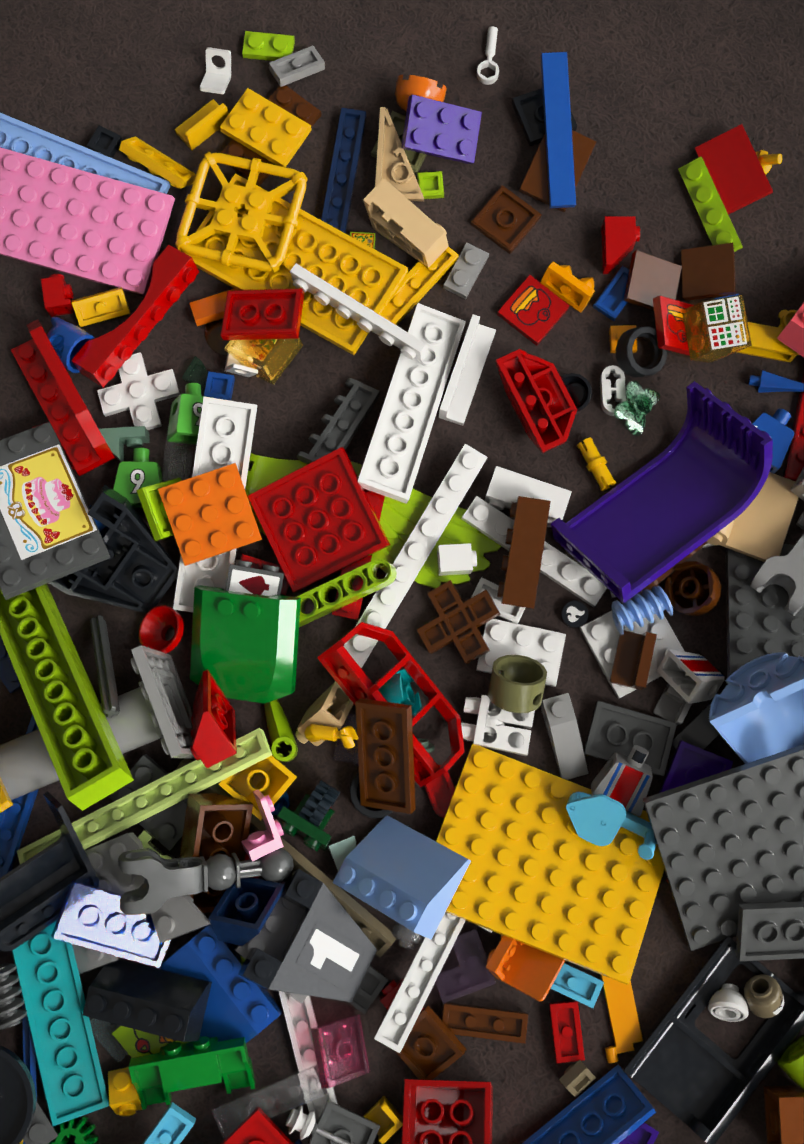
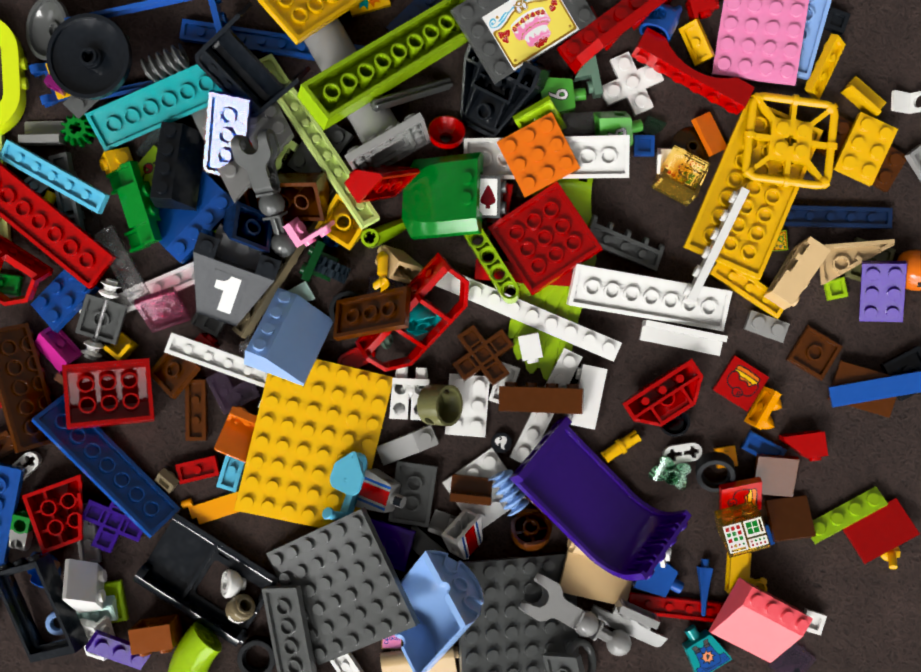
camera: 85 degrees right, 10 degrees up
(262, 314) = (705, 170): red tile -> none

